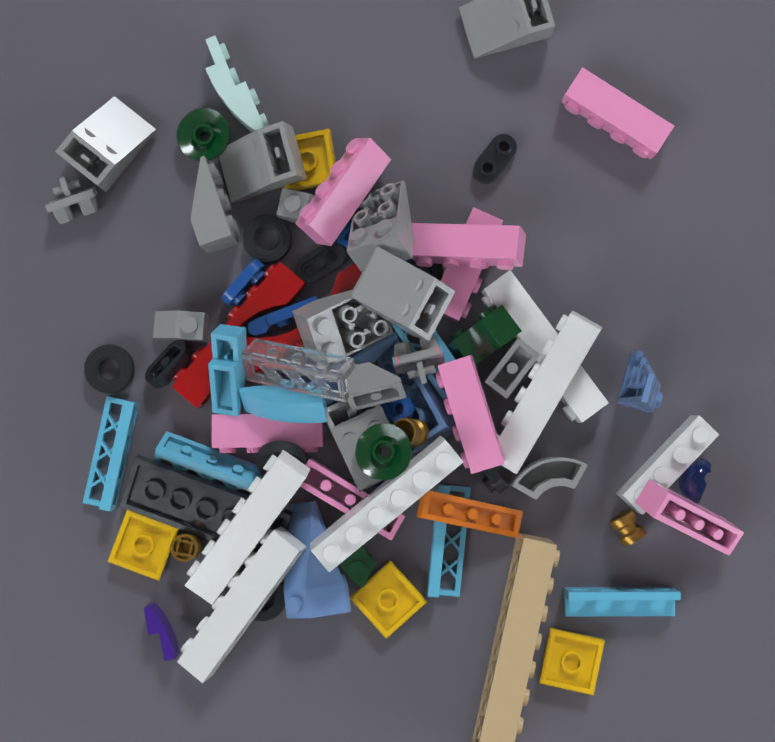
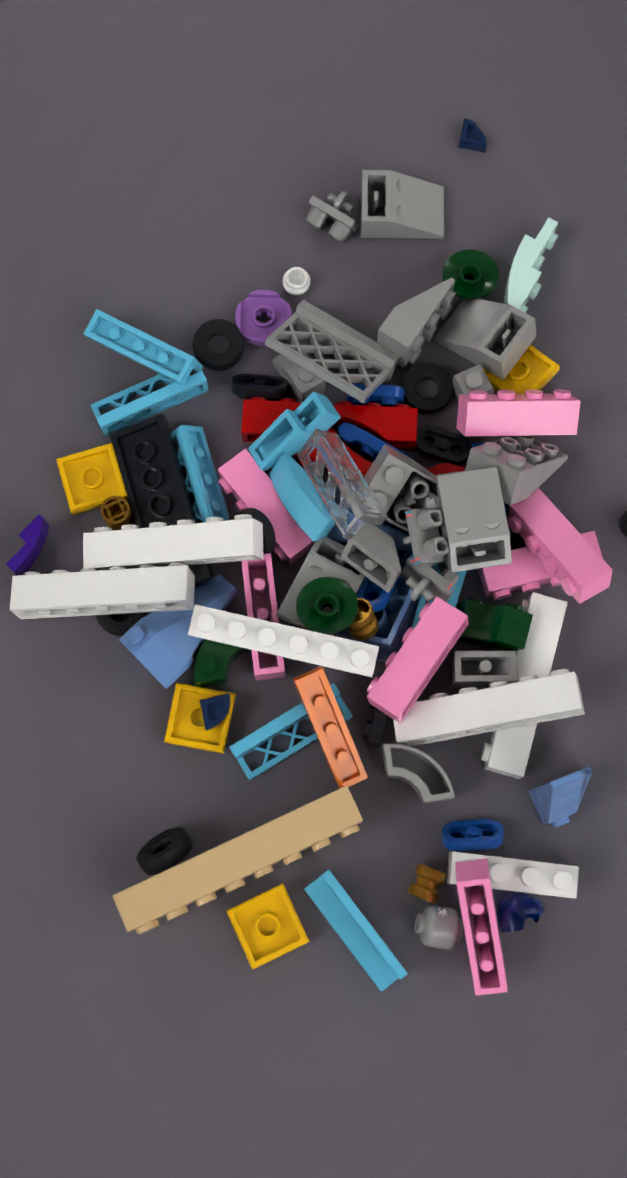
camera: 55 degrees right, 10 degrees down
(68, 432) = (141, 347): none -> medium azure fence
(89, 40) = (472, 137): none -> dark blue tile
(99, 319) = (251, 308): none -> medium lavender plate
(103, 270) = (296, 281): none -> white plate
(182, 275) = (339, 341): none -> light grey fence
(386, 338) = (424, 536): none -> light grey hips
(392, 585) = (215, 710): none -> dark blue tile
(456, 697) = (164, 851): none -> black tyre
(618, 469) = (472, 835): none -> blue plate
(663, 543) = (439, 927): none -> light grey head

